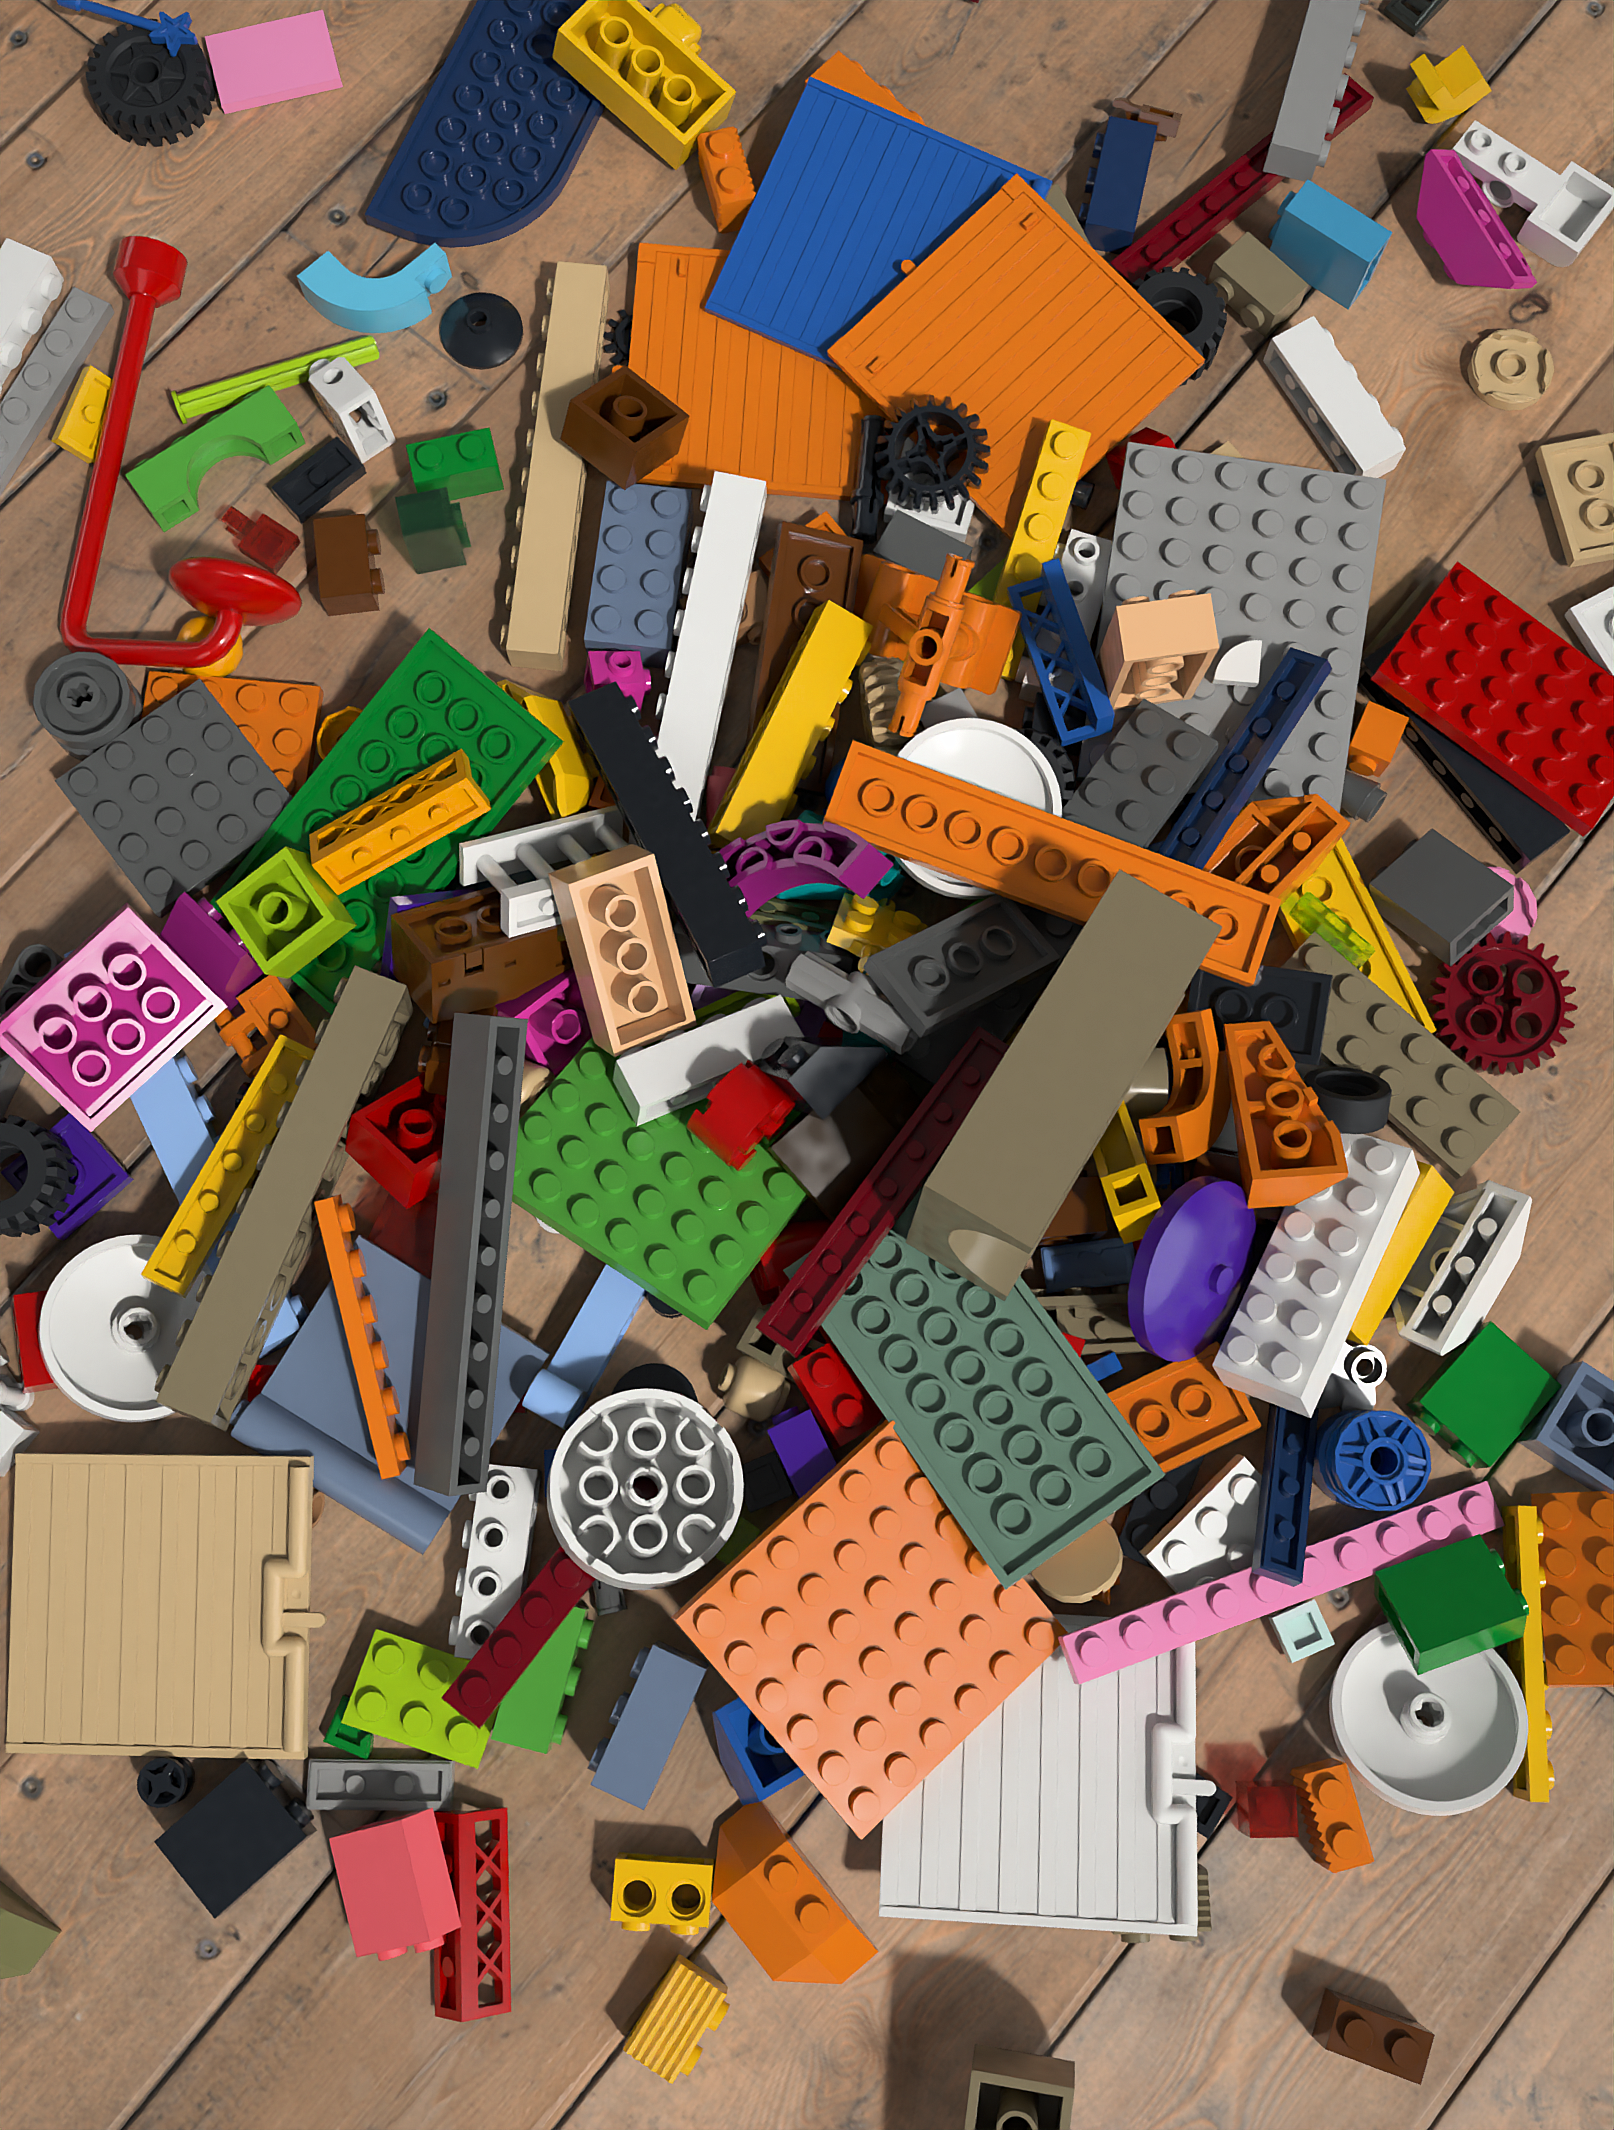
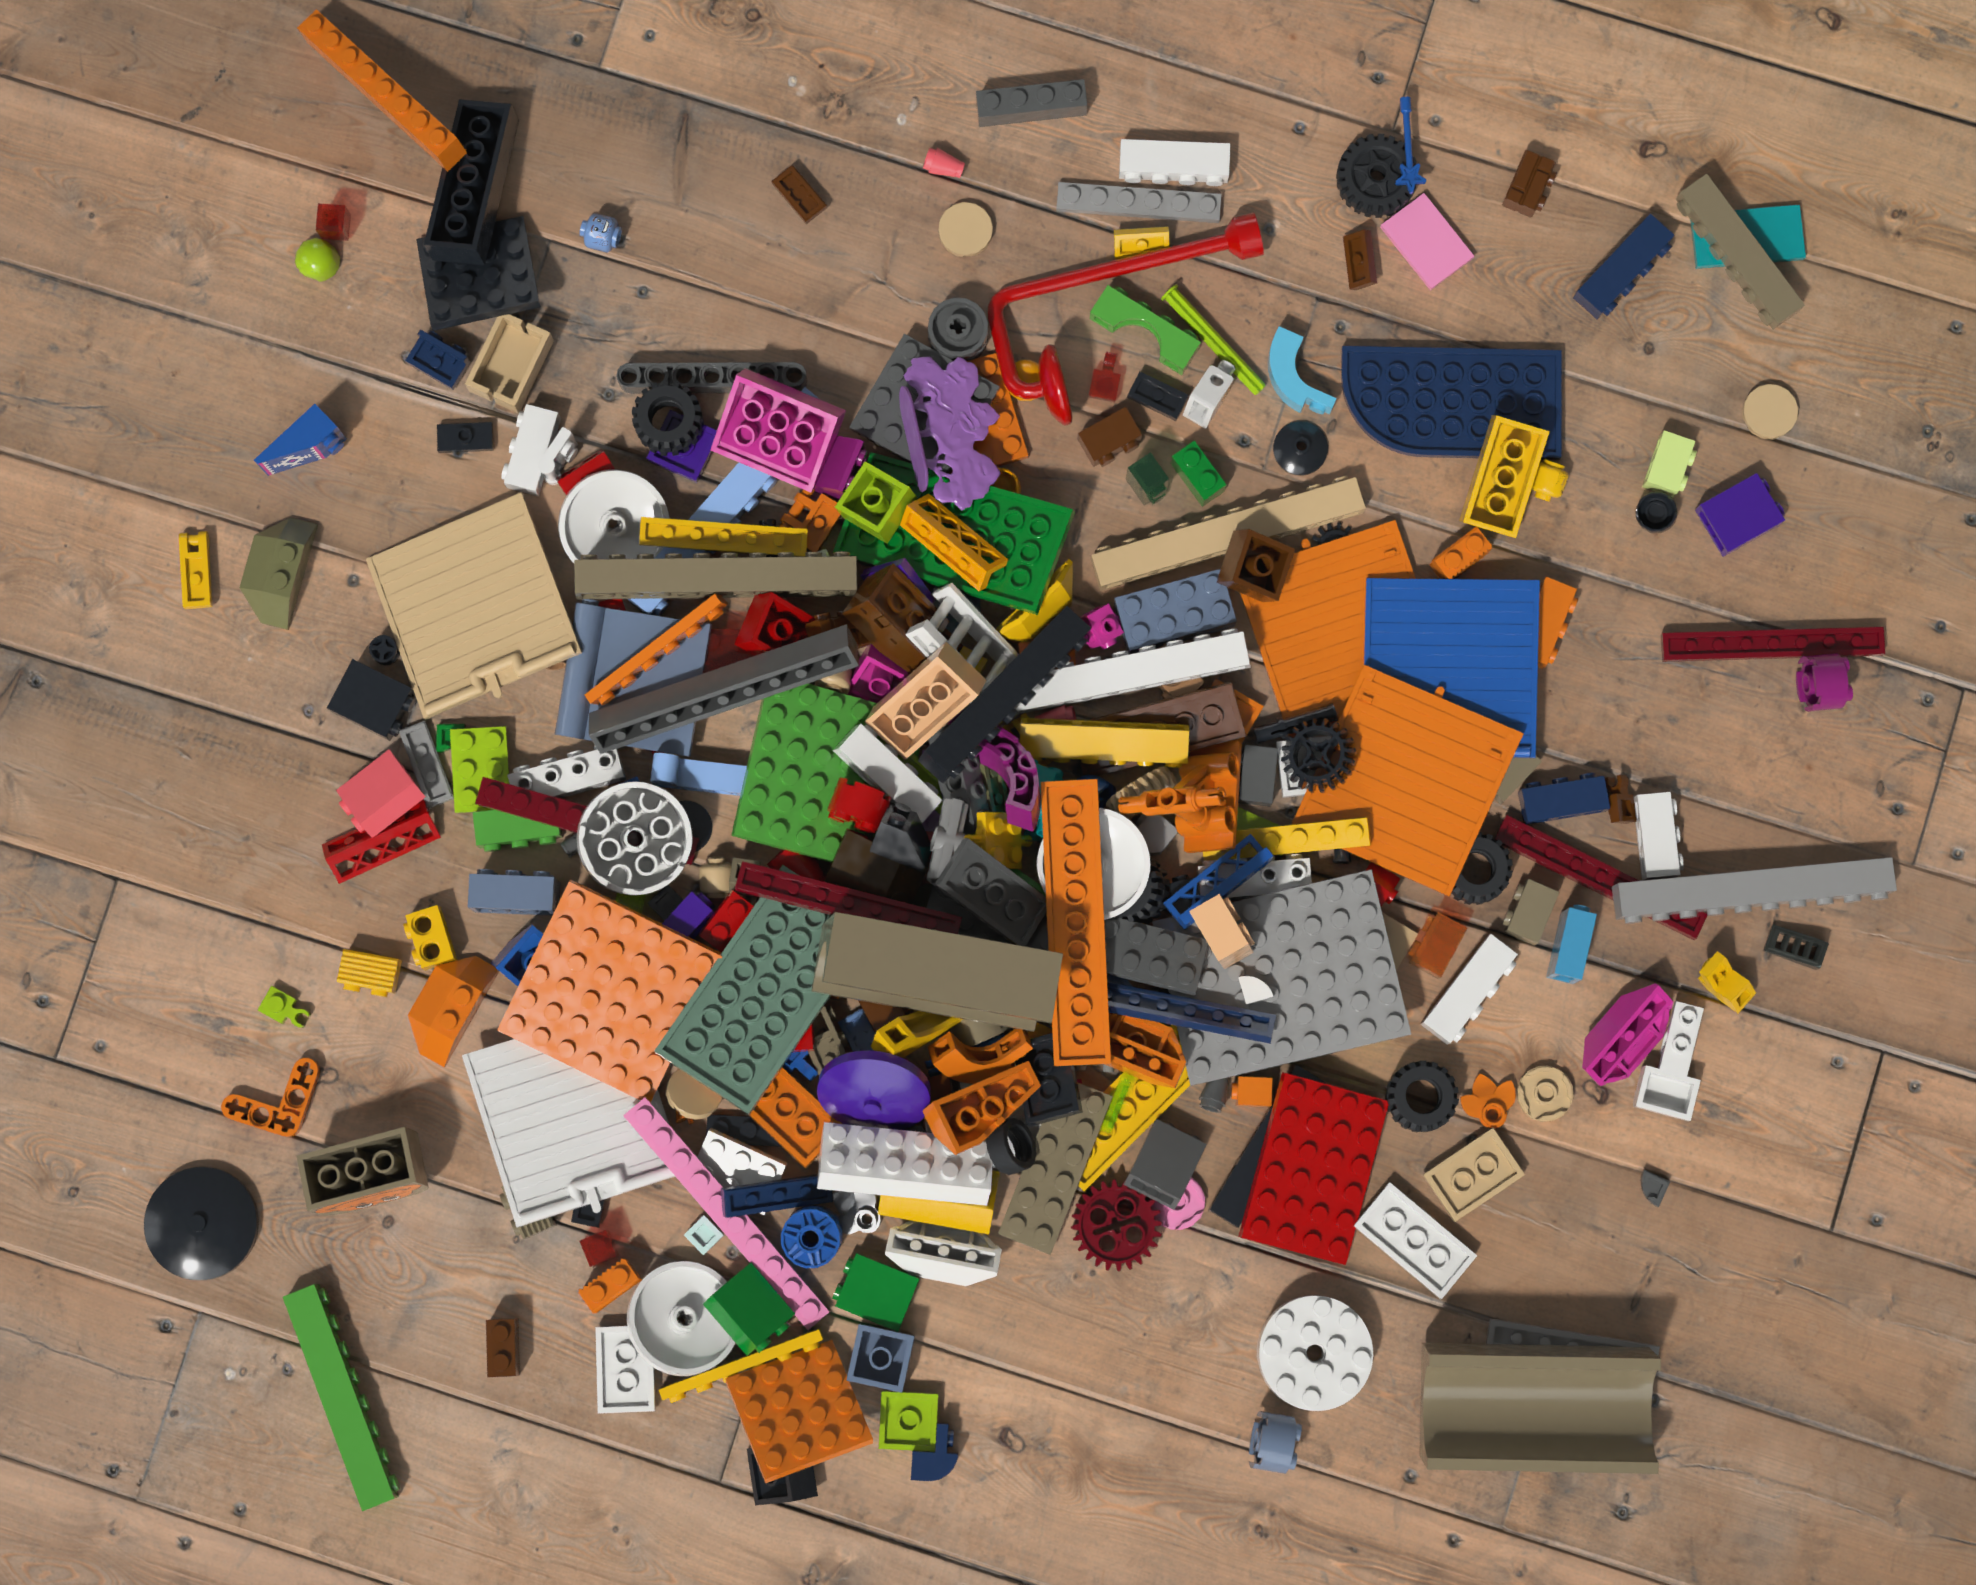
camera: 70 degrees right, 5 degrees up
(220, 754) = (954, 424): none -> medium lavender plant
(256, 147) = (1360, 259): none -> reddish brown plate
(1215, 93) = (1657, 836): none -> white brick
(1256, 417) = (1437, 944): none -> clear orange brick
(1482, 493) = (1445, 1090): none -> black tyre
(1483, 1852) = (623, 1376): none -> white plate
(1492, 441) = (1487, 1097): none -> orange plate

